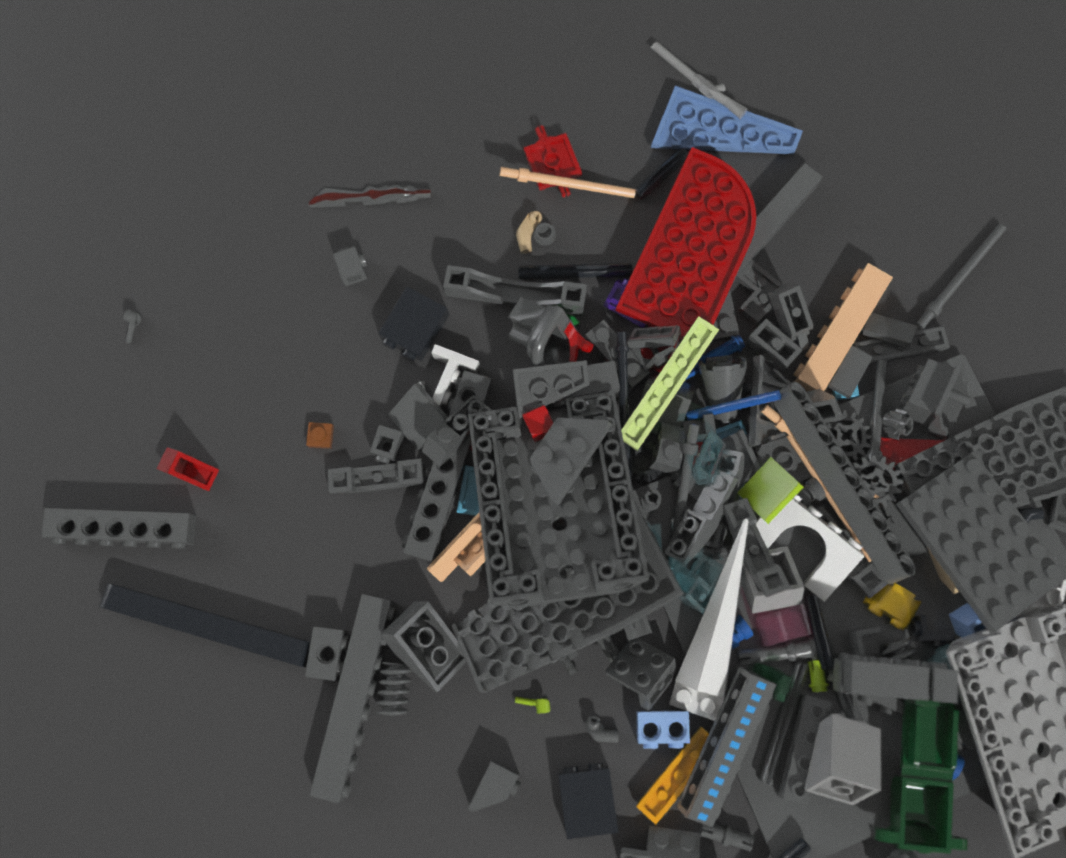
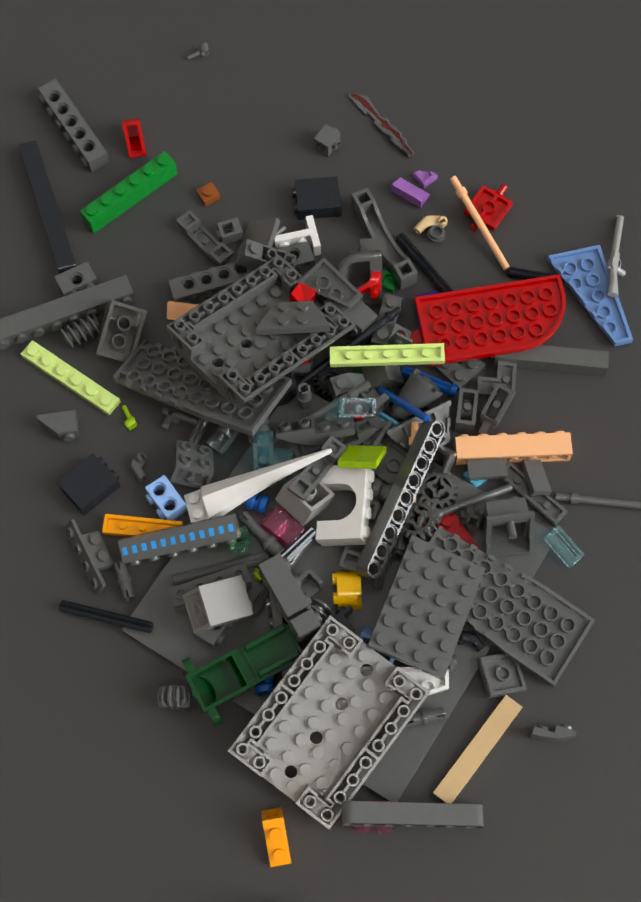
camera: 50 degrees right, 10 degrees down
(255, 521) = (128, 192): none -> green brick
(438, 737) = (70, 377): none -> yellowish green plate
(468, 199) = (424, 178): none -> medium lavender tile
(475, 225) = (409, 192): none -> medium lavender slope
(654, 337) = (412, 330): dark grey plate -> none
(962, 349) = (557, 549): none -> clear light blue tile

